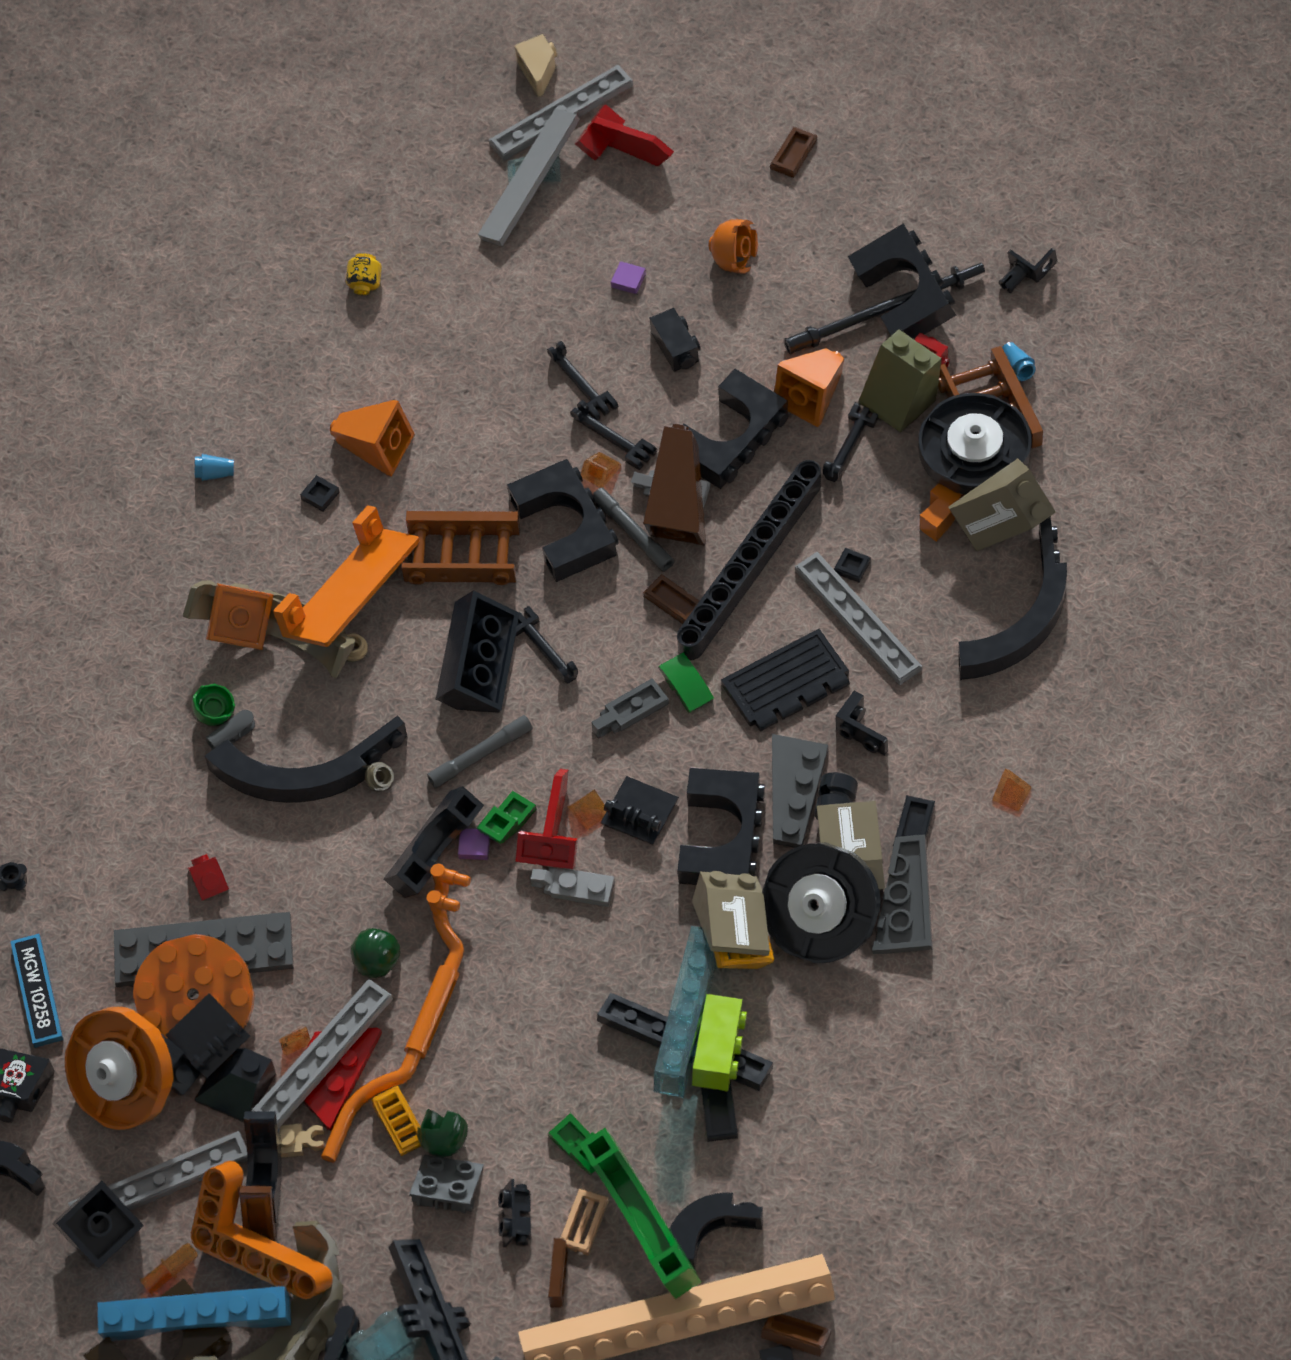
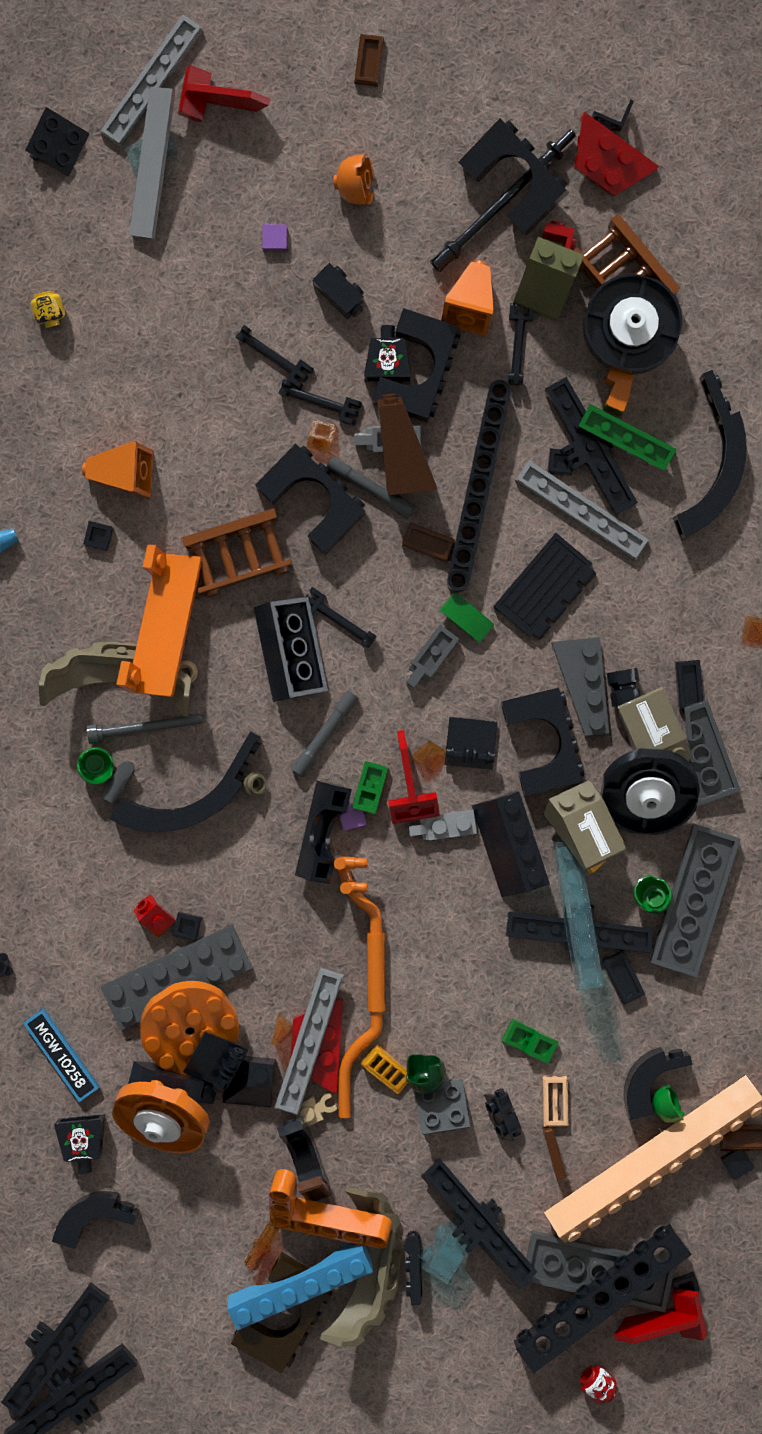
camera: 25 degrees left, 30 degrees up
(98, 1224) = (198, 1242): black slope -> none
(178, 1172) = (223, 1177): light grey tile -> none
(229, 677) = (97, 733): none -> dark grey piece
(239, 616) = (84, 683): orange tile -> none
(239, 900) = (187, 926): none -> black tile
(375, 952) = (313, 941): dark green hair -> none
(440, 136) = (56, 141): none -> black hinge
(537, 62) = (110, 34): tan slope -> none
(640, 1213) = (632, 1122): green arch -> none
(642, 923) = (510, 844): none -> black slope
(701, 410) = (387, 358): none -> black torso
(714, 1258) = (667, 1105): none -> green hair
(718, 1042) = (612, 934): lime brick -> none
(785, 1023) = (652, 894): none -> green hair
(834, 1050) = (695, 900): none -> dark grey plate
(849, 727) = (610, 603): black bracket -> none
(890, 558) = (589, 448): none -> black hinge
(933, 554) = (627, 437): none -> green fence
(1002, 506) = (675, 377): dark tan slope -> none
(1011, 298) = (608, 158): none -> red wing
(1020, 361) = (636, 220): dark azure cone -> none

